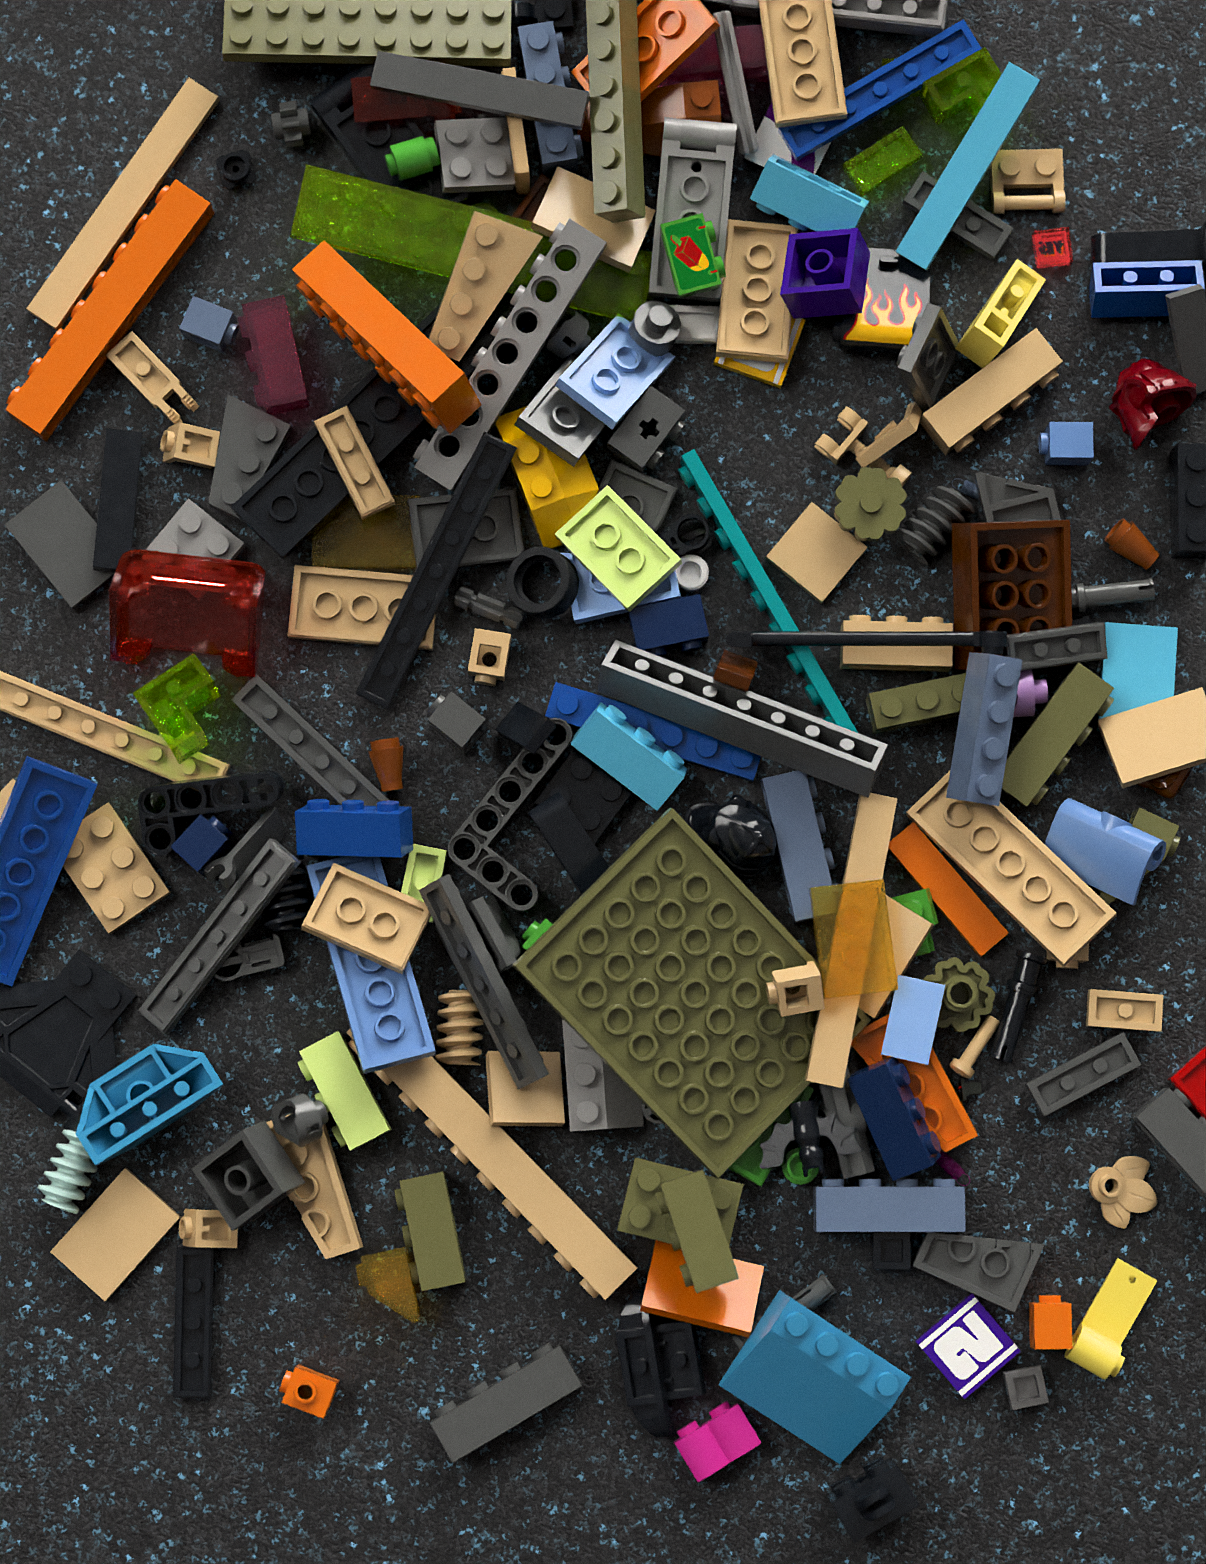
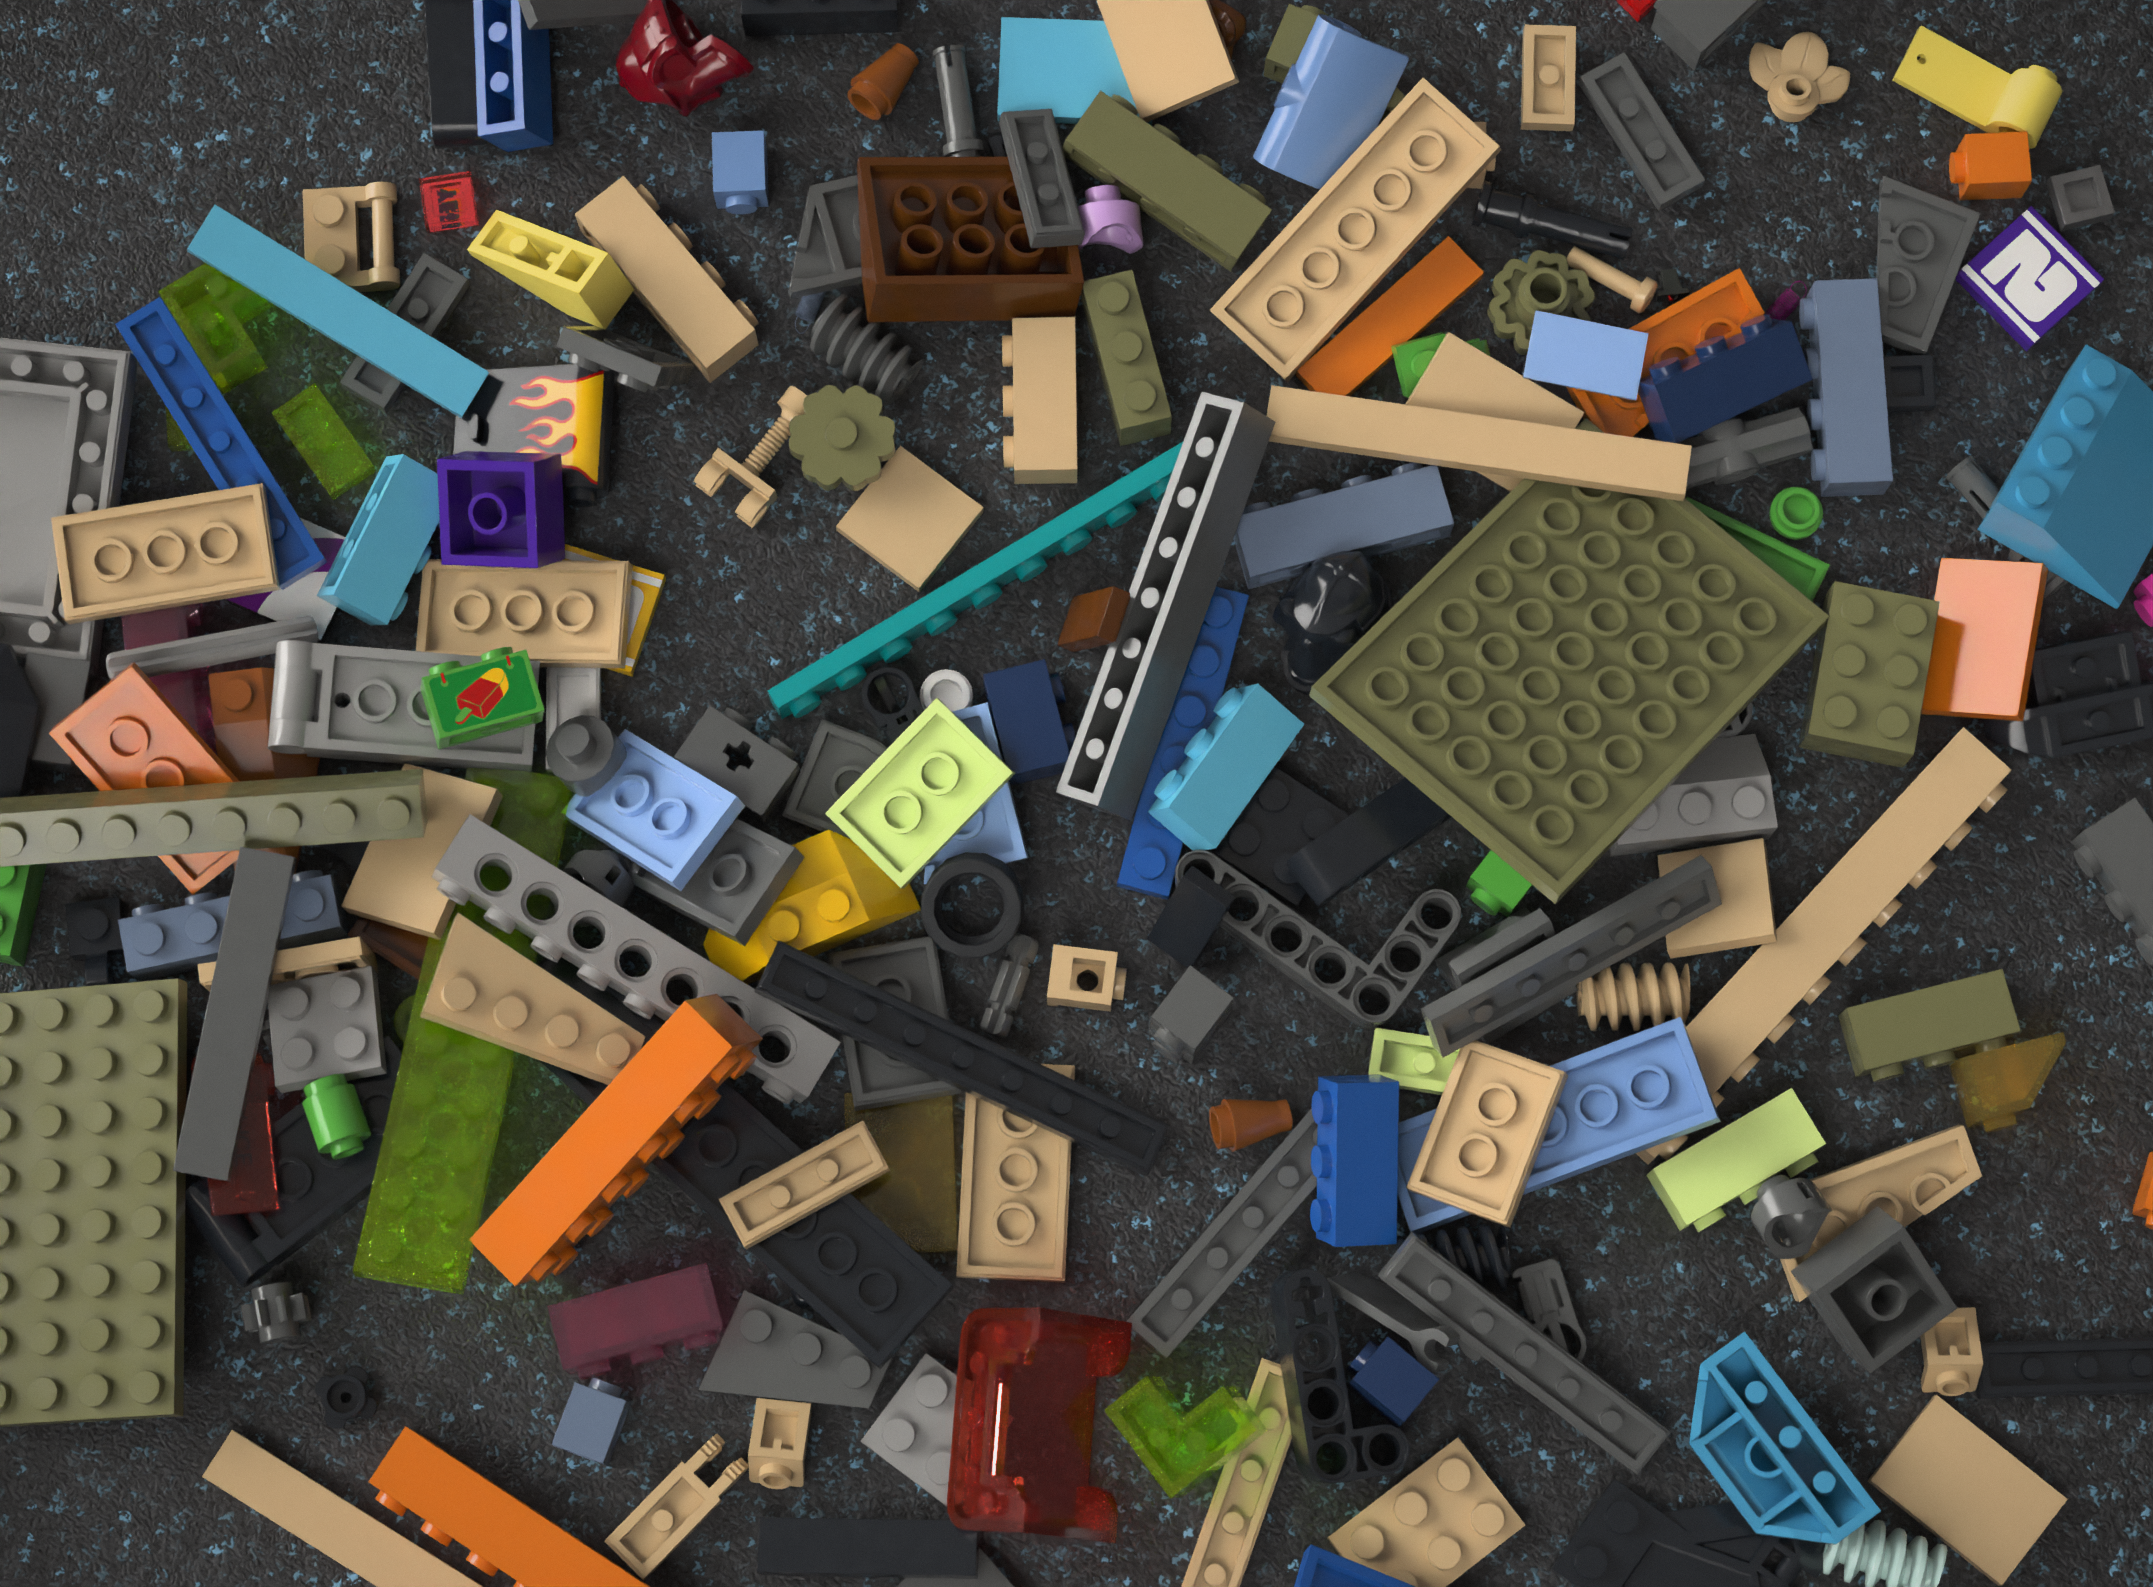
camera: 90 degrees left, 5 degrees down
(697, 1231) = (1912, 635): olive brick -> none
(805, 995) = (1558, 510): tan brick -> none
(807, 1132) = (1752, 498): black animal -> none
(853, 939) = (1479, 436): clear yellow tile -> none
(891, 436) = (737, 410): tan tile -> none
(984, 728) = (1170, 263): sand blue brick -> none
(989, 641) = (1043, 257): black hinge -> none

